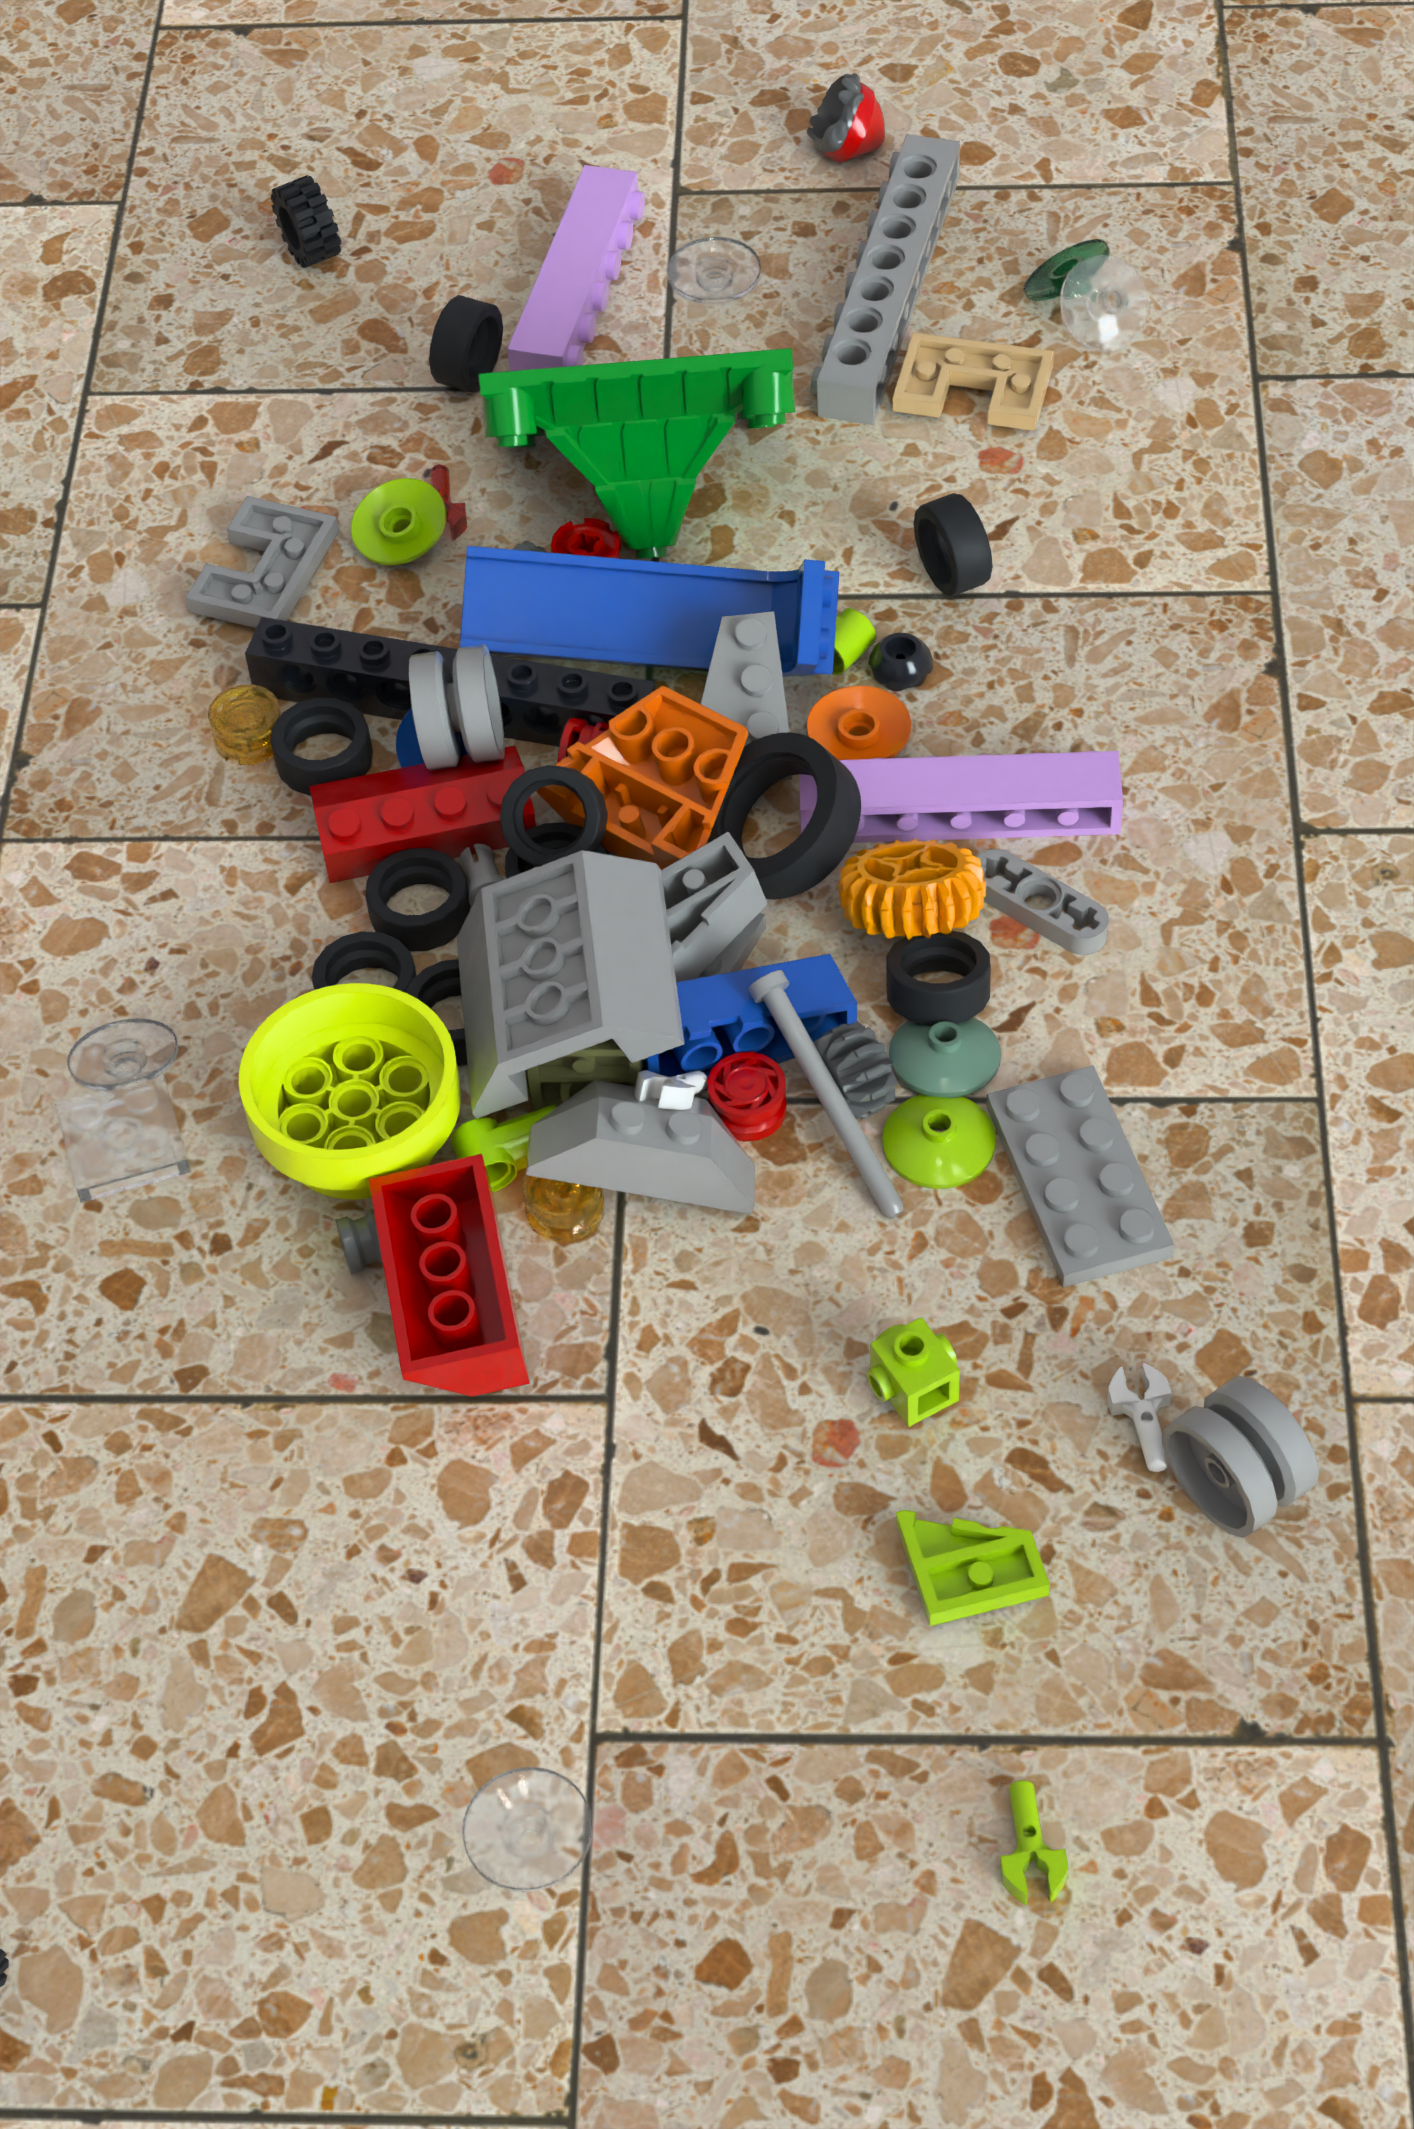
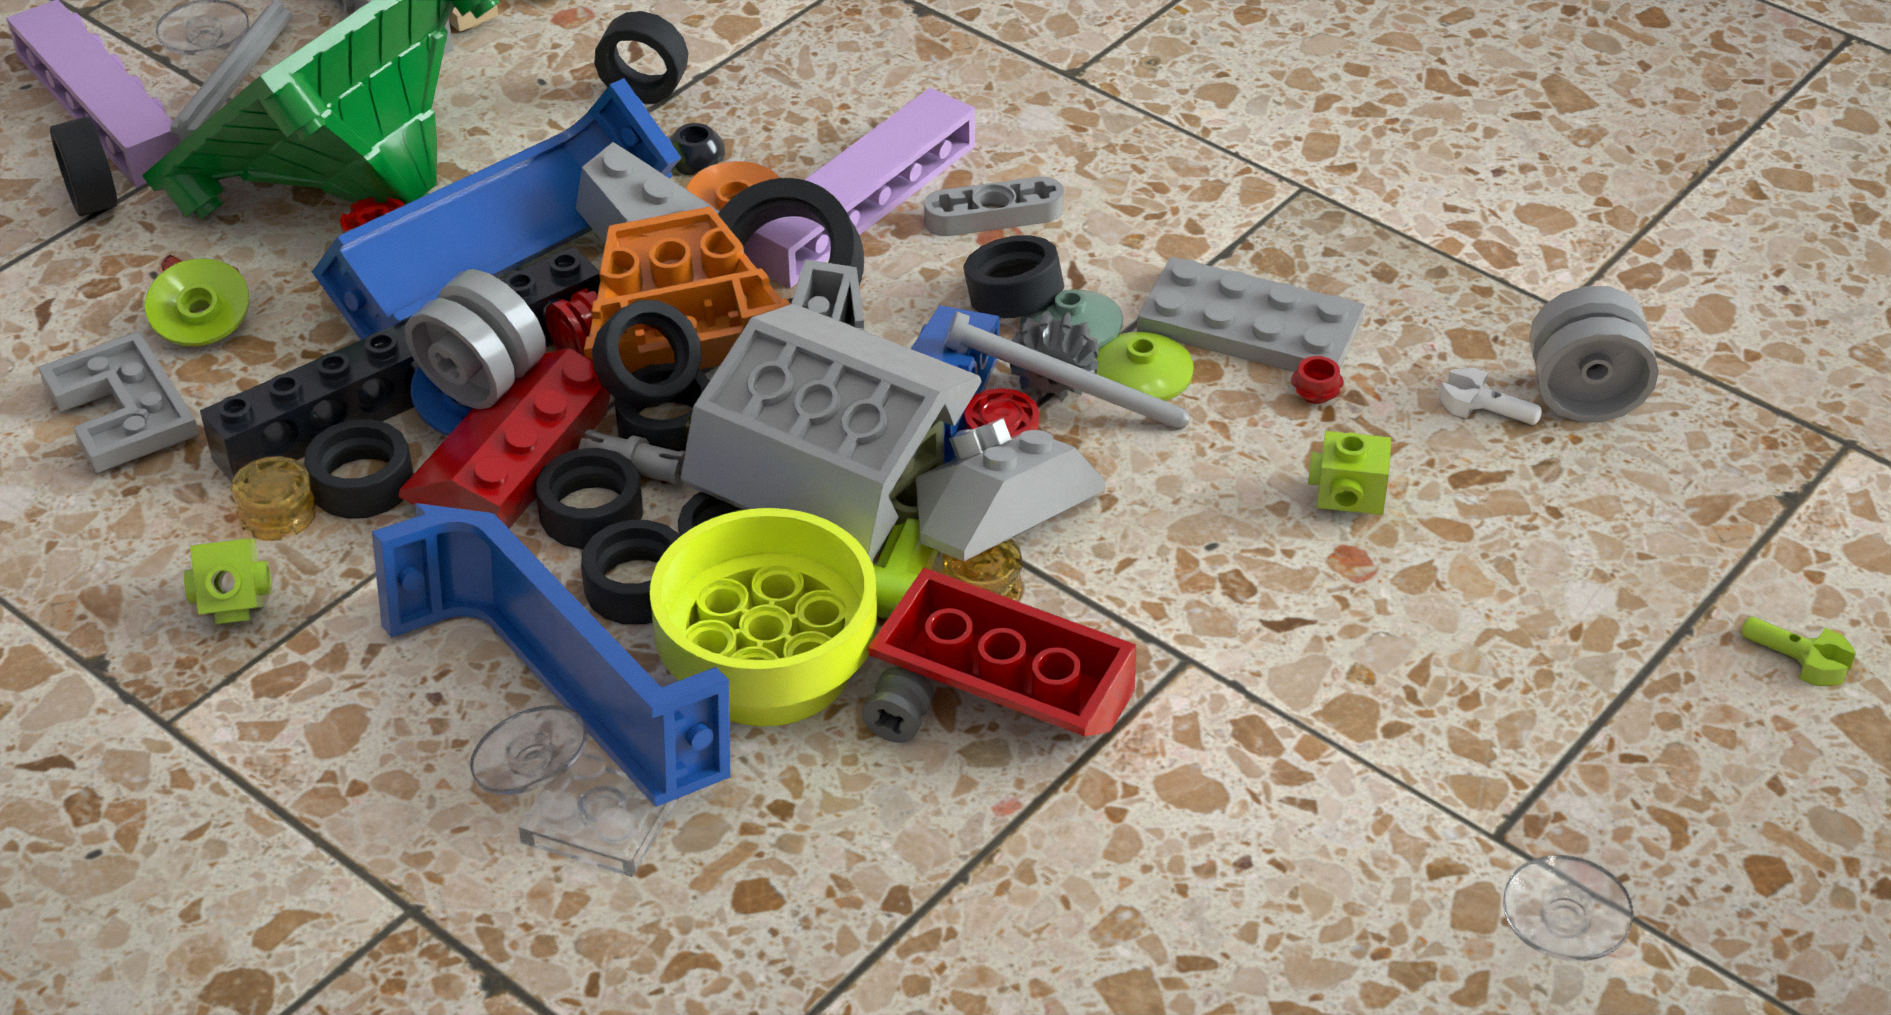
camera: 55 degrees left, 10 degrees down
(130, 763) = (210, 565): none -> lime brick
(234, 871) = (475, 567): none -> blue panel
(676, 327) = (232, 70): none -> light grey axle
(912, 888) = (927, 239): light orange gear -> none
(970, 1567) = (1538, 546): lime wing -> none
(1035, 1261) = (1317, 379): none -> red plate

